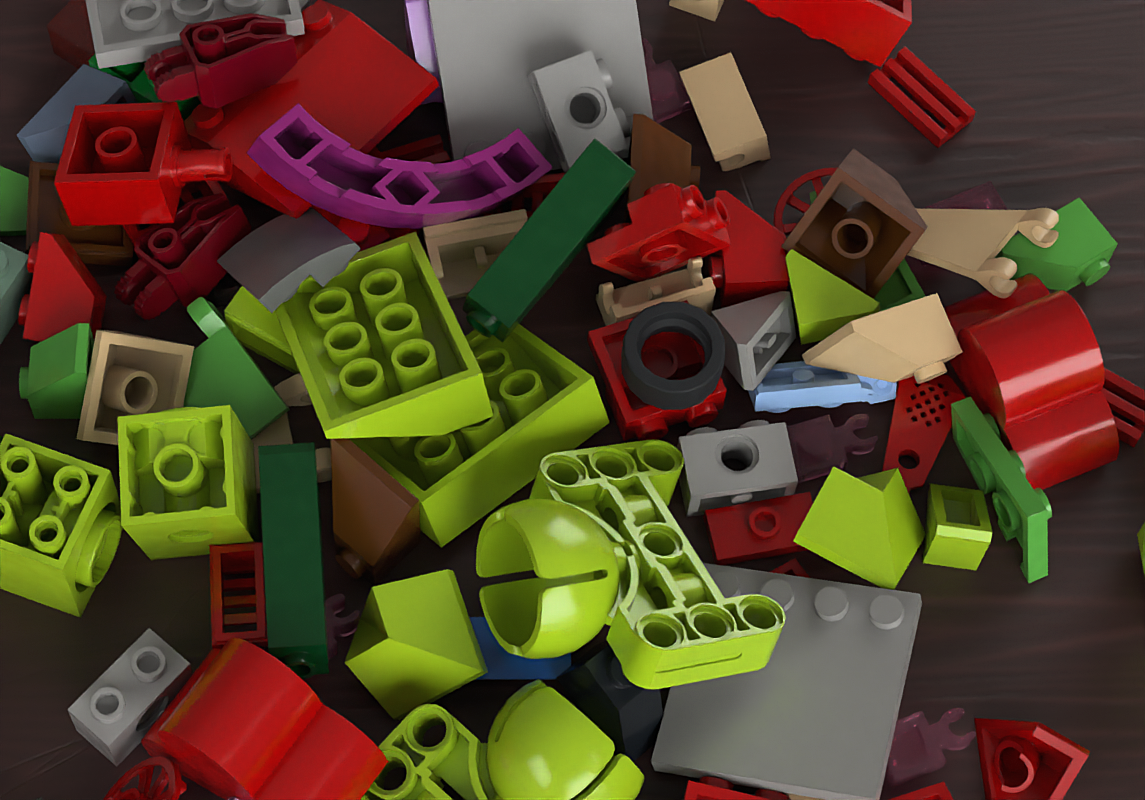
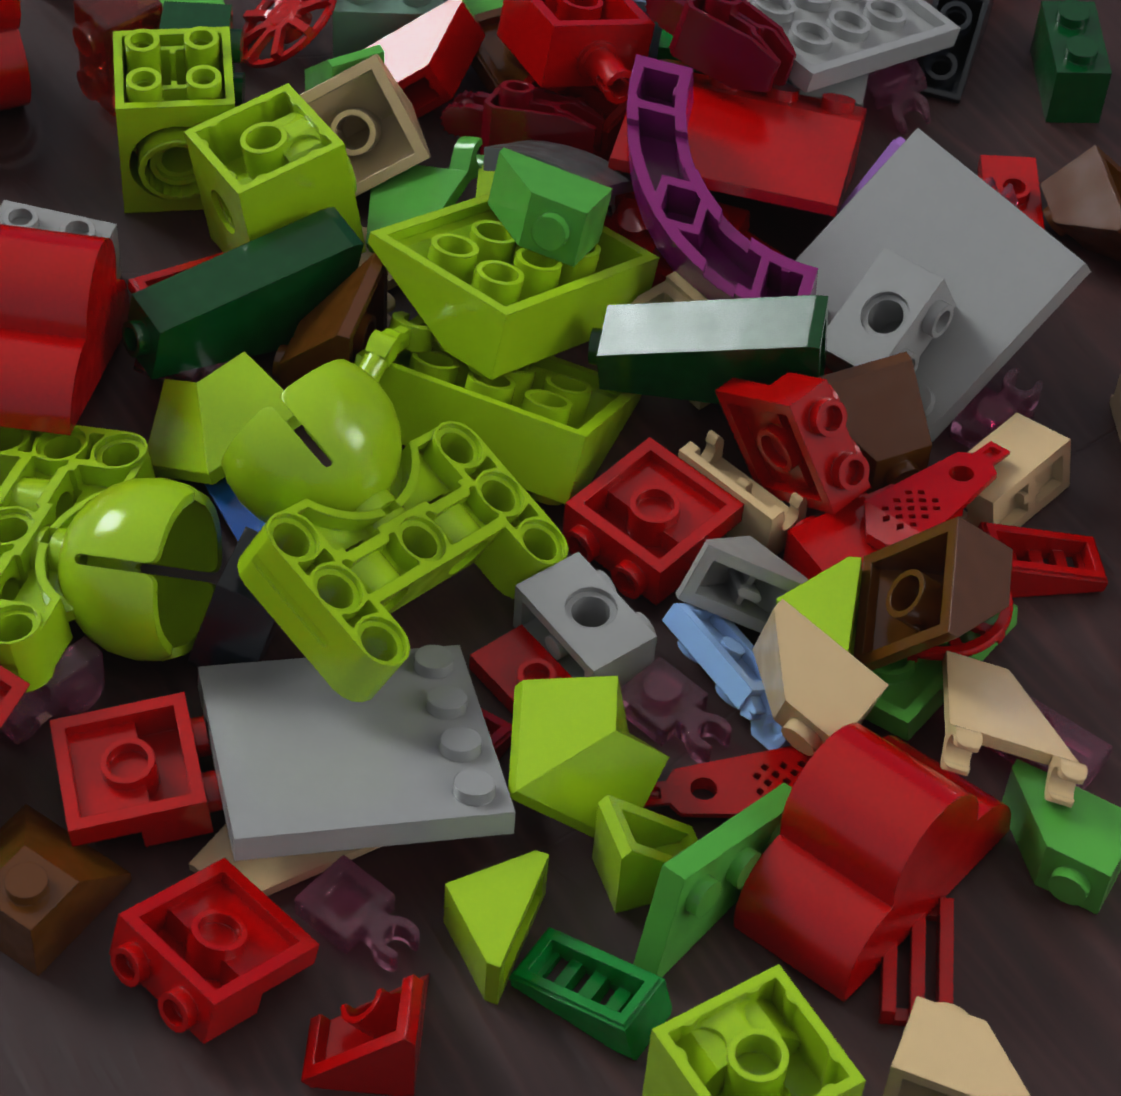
camera: 65 degrees right, 15 degrees down
(351, 286) = (548, 207): none -> bright green slope
(438, 483) = (386, 345): none -> lime piece
(673, 318) = (665, 462): black tyre -> none
(748, 164) = (930, 495): none -> red piece
(788, 163) = (1034, 577): none -> red slope
(971, 653) = (492, 917): none -> lime slope
(1081, 593) = (628, 1016): none -> green slope

